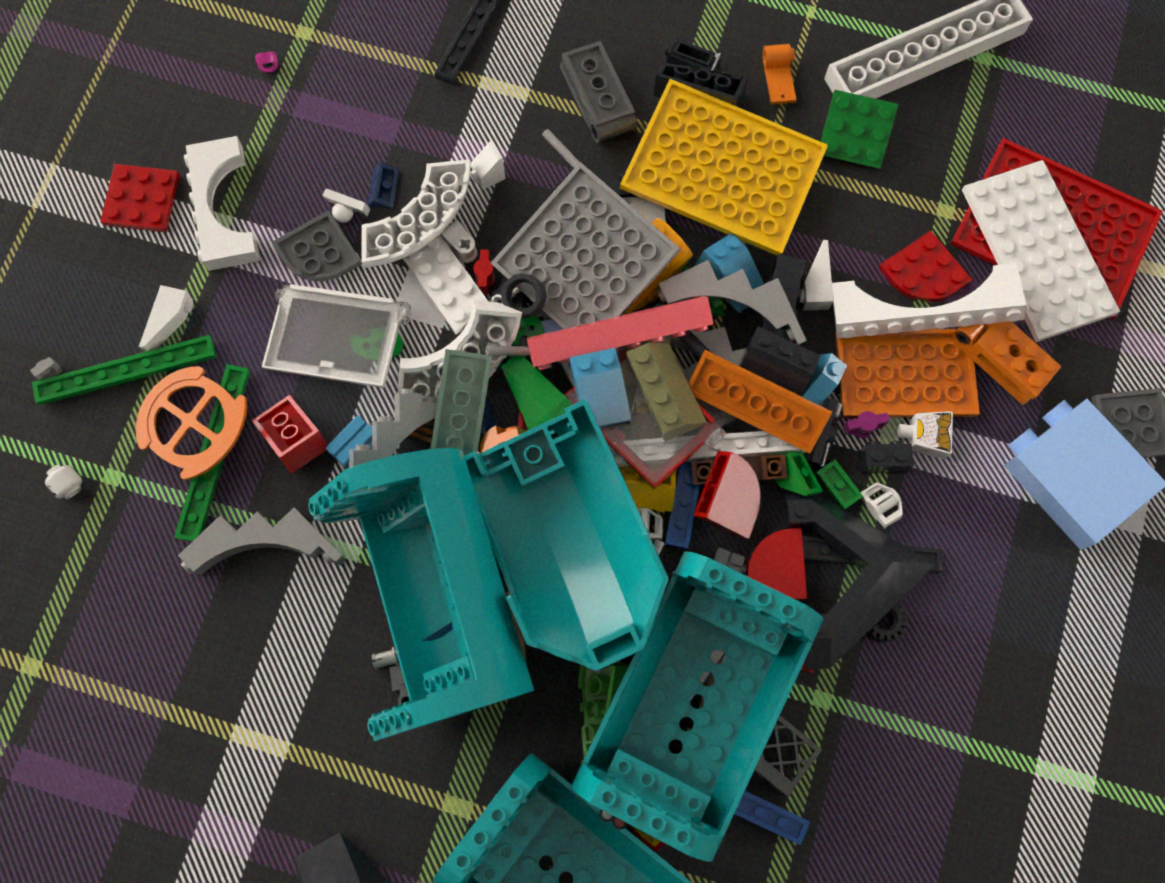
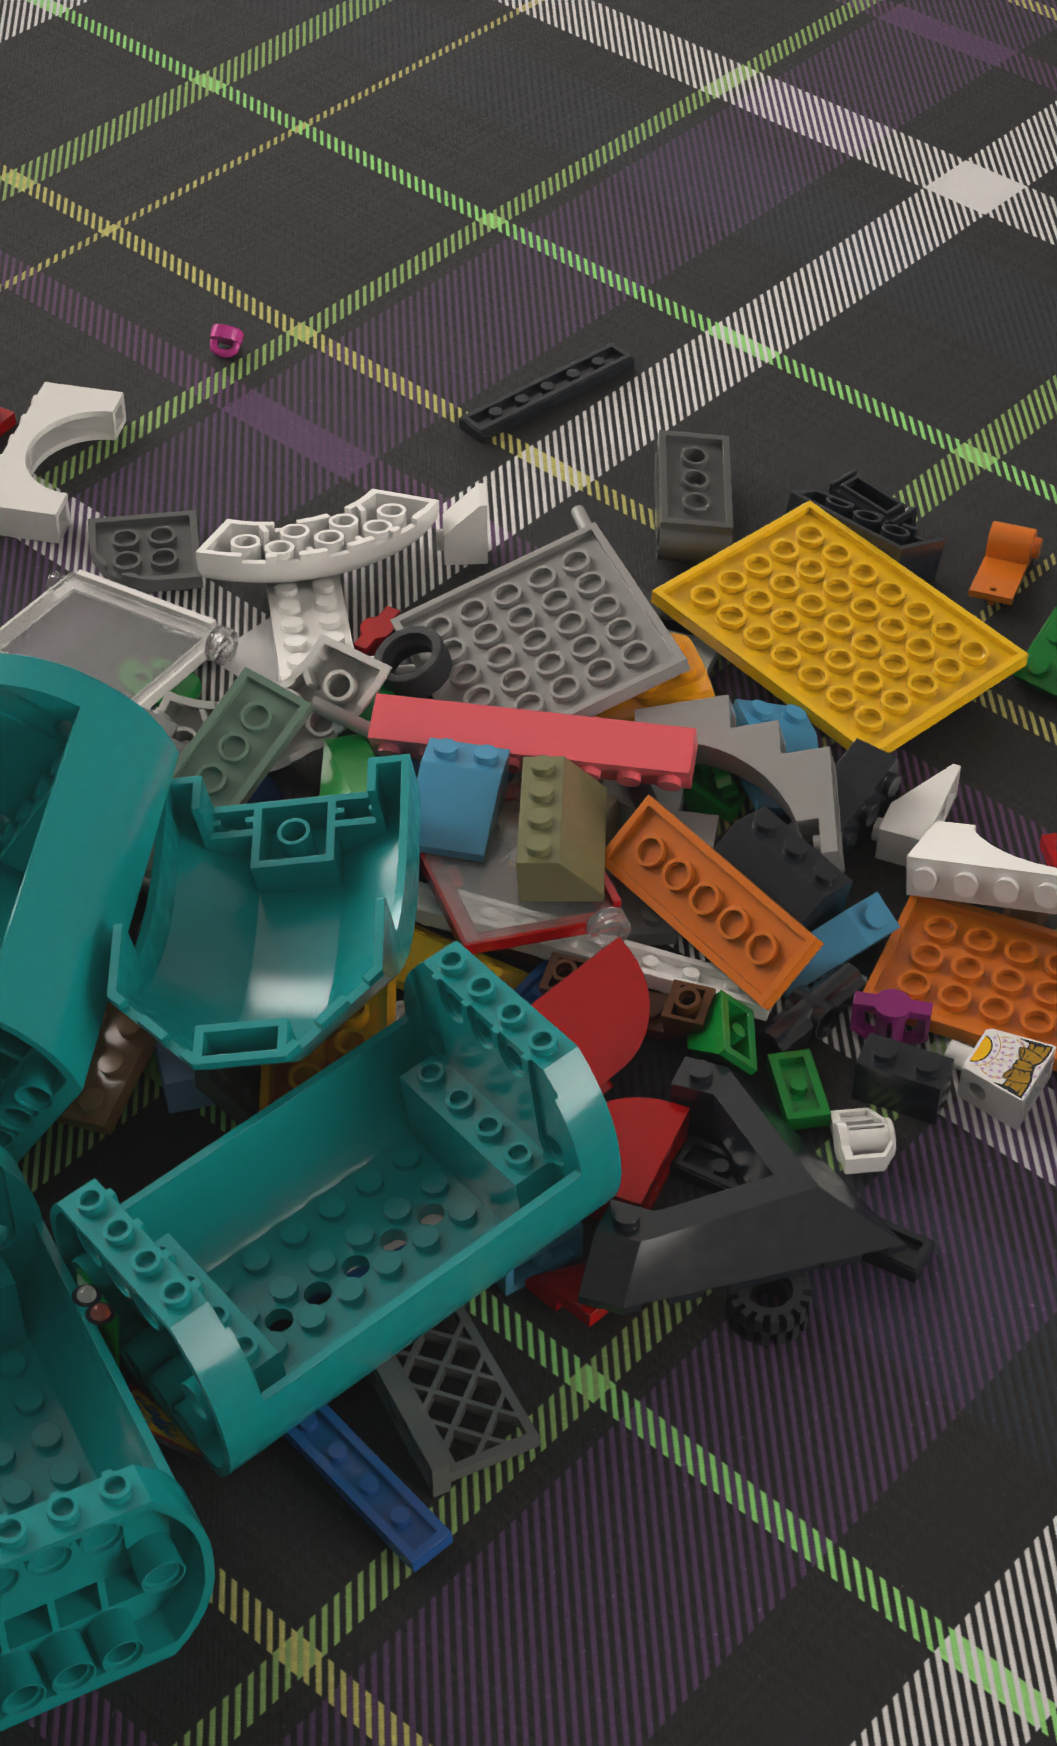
camera: 25 degrees right, 30 degrees down
(344, 206) = (219, 507): white tile -> none
(383, 186) = (303, 504): dark blue slope -> none
(460, 242) = (363, 598): white piece -> none

